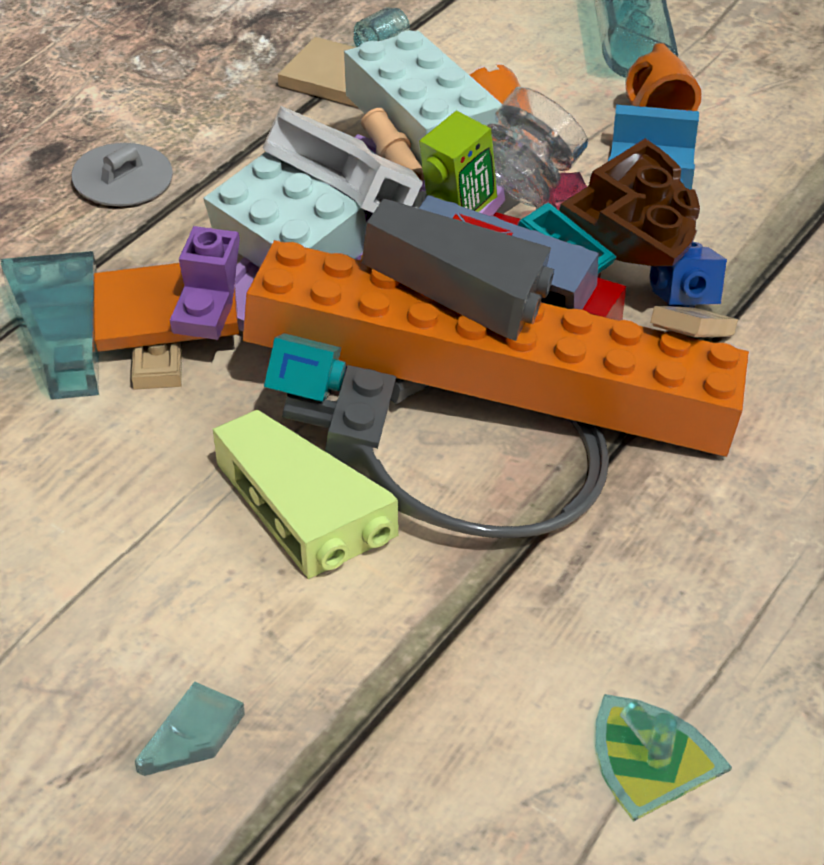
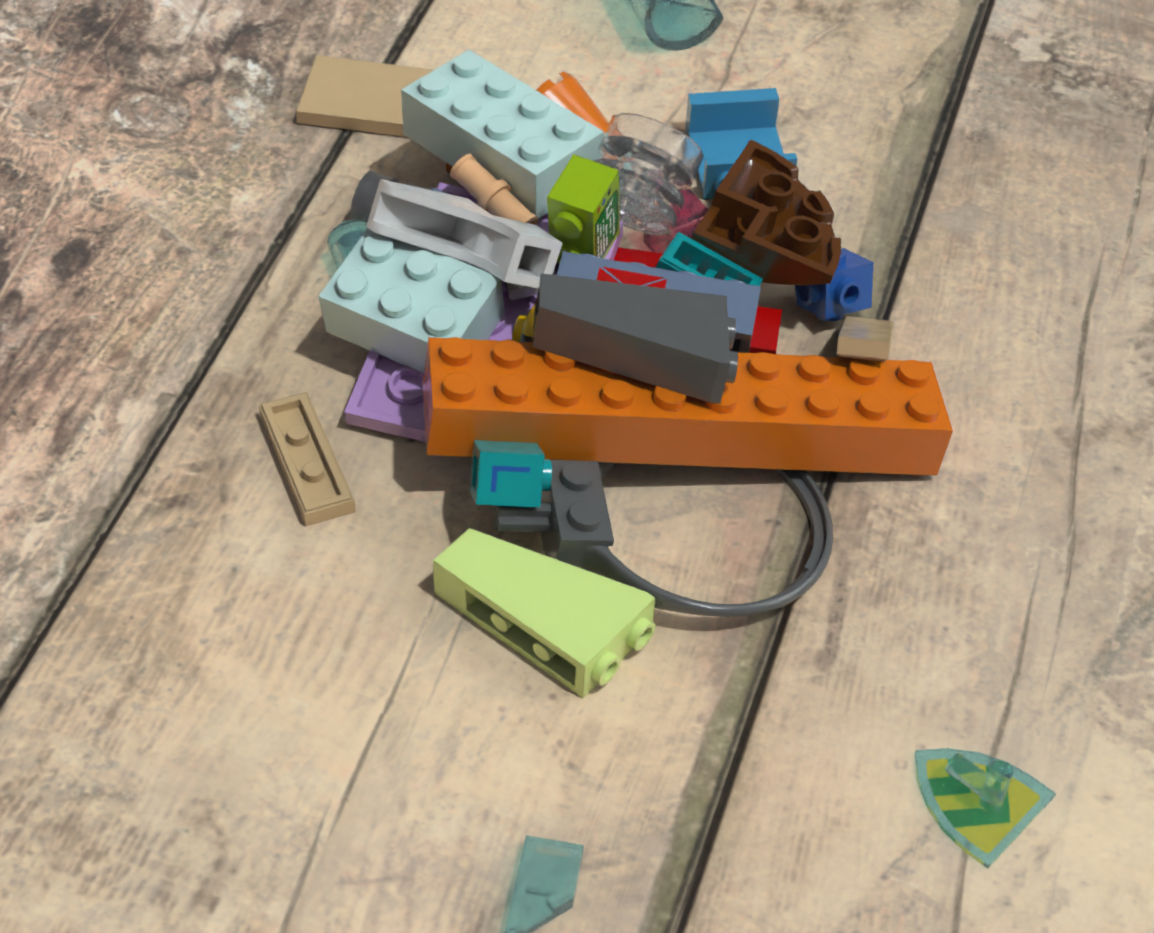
camera: 20 degrees left, 5 degrees up
(56, 315) = (194, 463): clear light blue slope -> none
(122, 174) = (173, 268): light grey shield -> none
(137, 306) = (309, 423): orange tile -> none
(209, 280) = (359, 395): medium lavender slope -> none
(380, 26) = (389, 36): clear light blue brick -> none
(662, 82) = (723, 59): orange piece -> none

